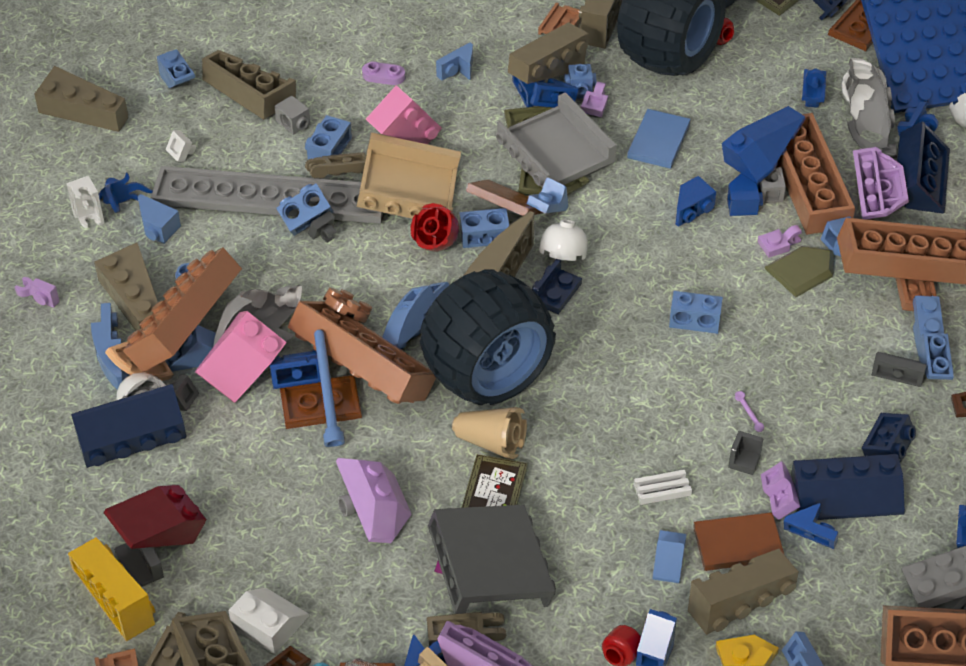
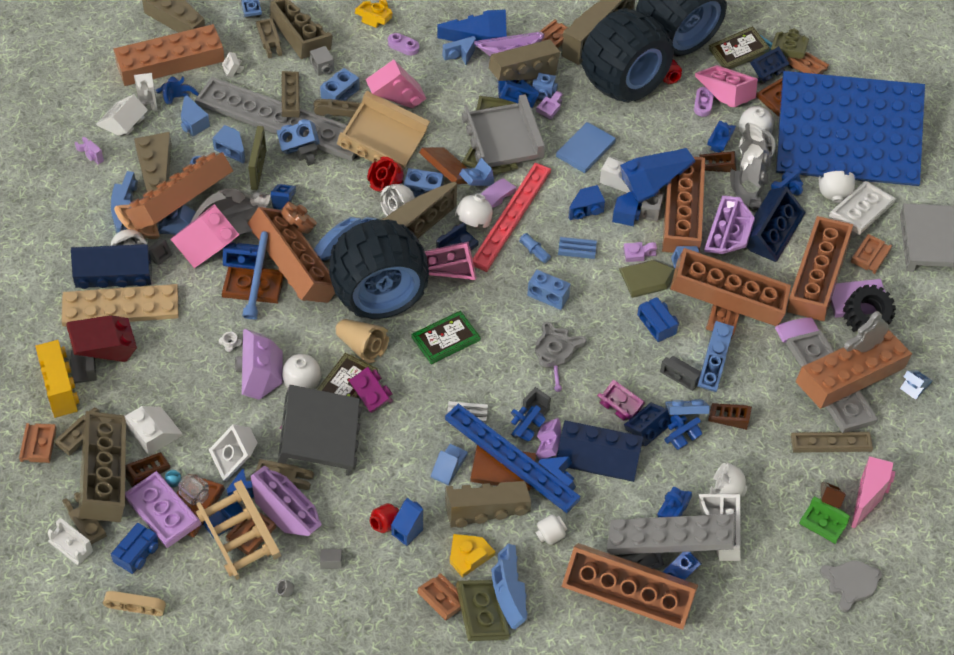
camera: 15 degrees right, 5 degrees up
(64, 239) = (123, 116): none -> white slope
(94, 152) = (170, 54): none -> nougat brick
(179, 463) = (131, 302): none -> tan plate
(212, 103) = (269, 36): none -> dark tan hinge
(217, 234) = (230, 143): none -> medium blue slope
(264, 246) = (257, 158): none -> olive tile
(270, 162) = (290, 94): none -> dark tan tile
(314, 285) = (281, 195): none -> blue slope
(318, 474) = (230, 336): none -> white plate
(333, 45) = (374, 13): none -> yellow plate
(387, 616) = (233, 450): none -> white slope
(430, 491) = (301, 371): none -> white cylinder
(459, 251) = (394, 197): none -> white cylinder
(483, 28) = (485, 26): none -> blue wedge
(500, 48) = (501, 44): none -> lavender wedge
(532, 490) = (370, 389): none -> magenta bracket
(571, 306) = (451, 261): none -> bright pink wedge
(581, 212) = (498, 191): none -> lavender slope
(593, 402) = (445, 337): none -> tile
(606, 241) = (510, 217): none -> coral tile
(653, 268) = (534, 248): none -> medium blue axle
(702, 254) = (577, 245): none -> medium blue tile
(710, 161) = (612, 175): none -> white slope
(733, 378) = (555, 346): none -> light grey tile
(741, 474) = (522, 430): none -> blue hips
(749, 525) = (512, 458): none -> blue plate
(773, 54) = (703, 102): none -> lavender plate
(795, 28) = (728, 85): none -> bright pink slope
(833, 107) = (722, 156): none -> reddish brown slope
(836, 600) = (551, 529): none -> white head
(838, 57) = (758, 116): none -> white cylinder
(842, 313) = (658, 319): none -> blue brick
(845, 420) = (621, 400): none -> bracket
(925, 407) = (680, 407): none -> medium blue plate
(932, 433) = (690, 428): none -> blue hips

